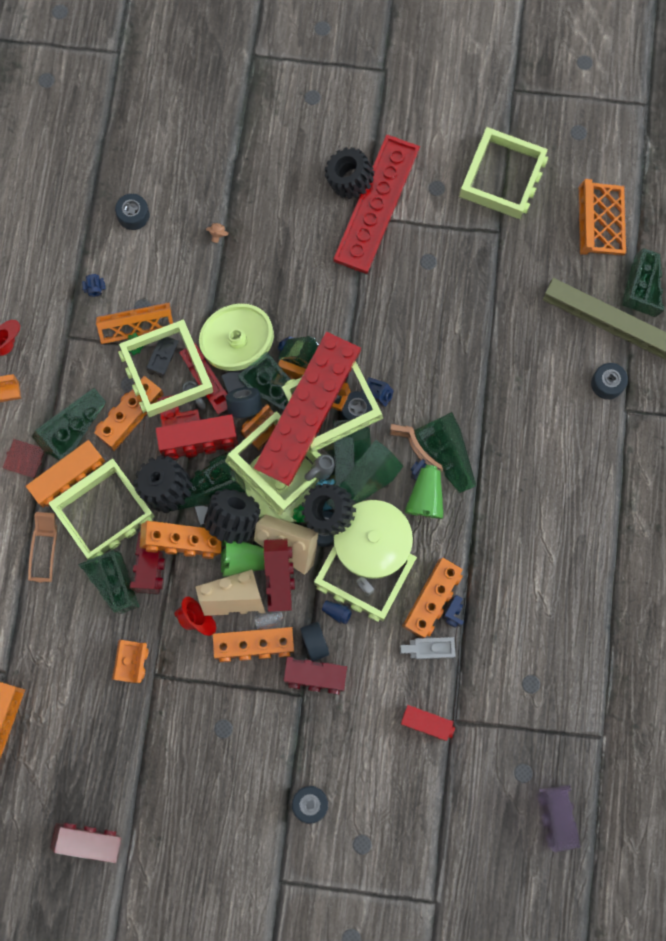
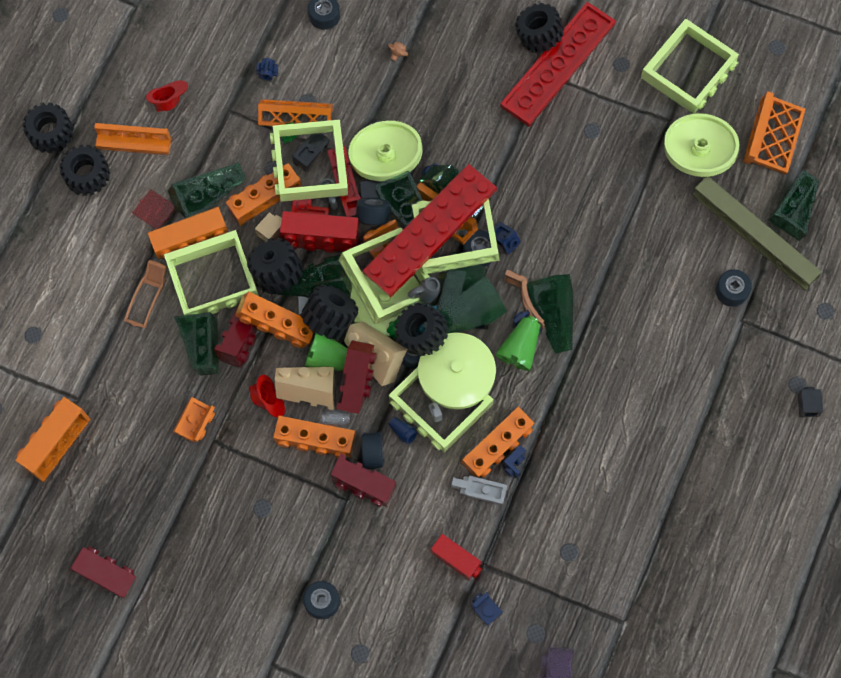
camera: 20 degrees right, 5 degrees down
(145, 446) = (269, 227): none -> tan brick
(470, 764) = (486, 608): none -> dark blue bracket
(538, 248) = (701, 145): none -> yellowish green dish

